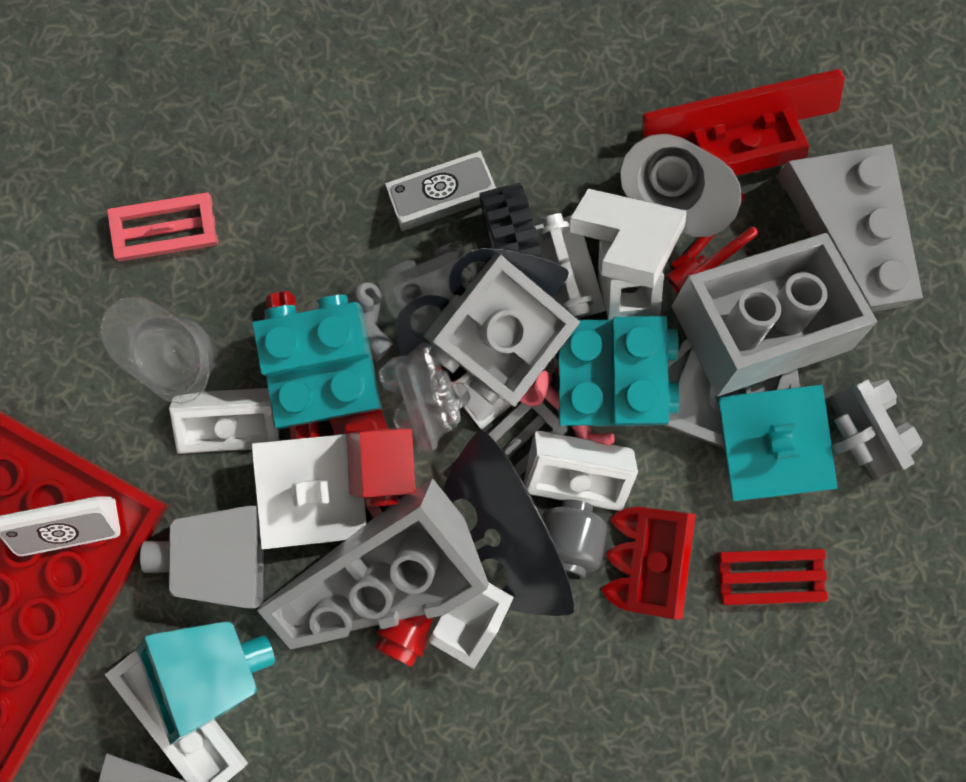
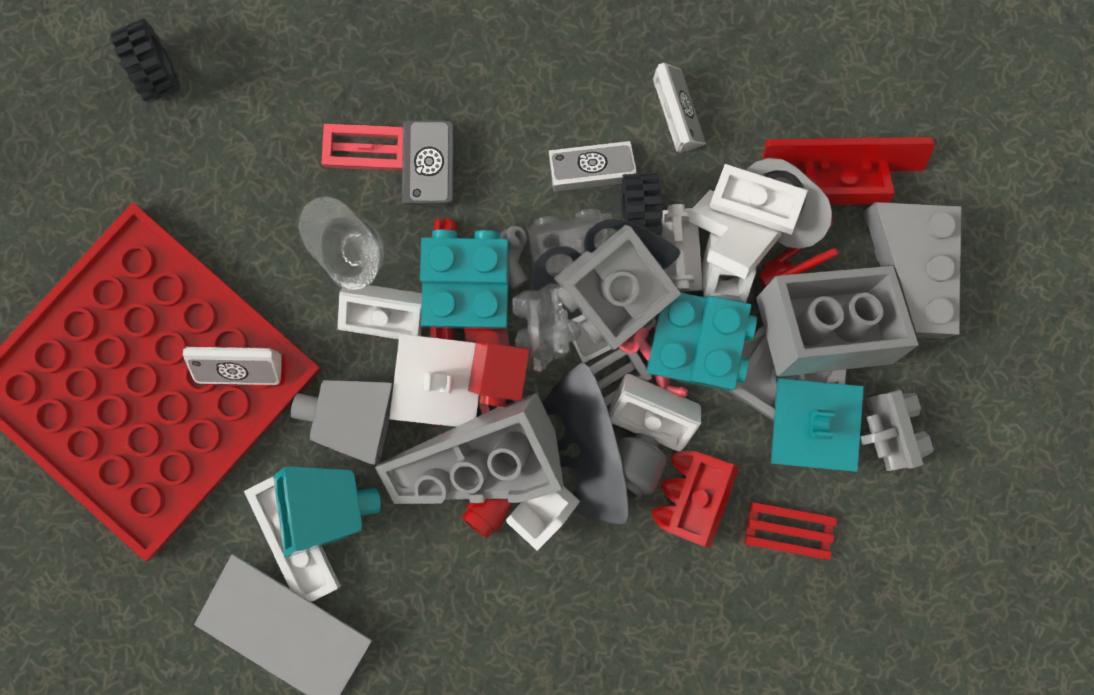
camera: 10 degrees right, 0 degrees up
(242, 230) = (427, 163): none -> slope
(529, 98) = (678, 108): none -> white slope
(648, 187) = (758, 199): none -> white plate

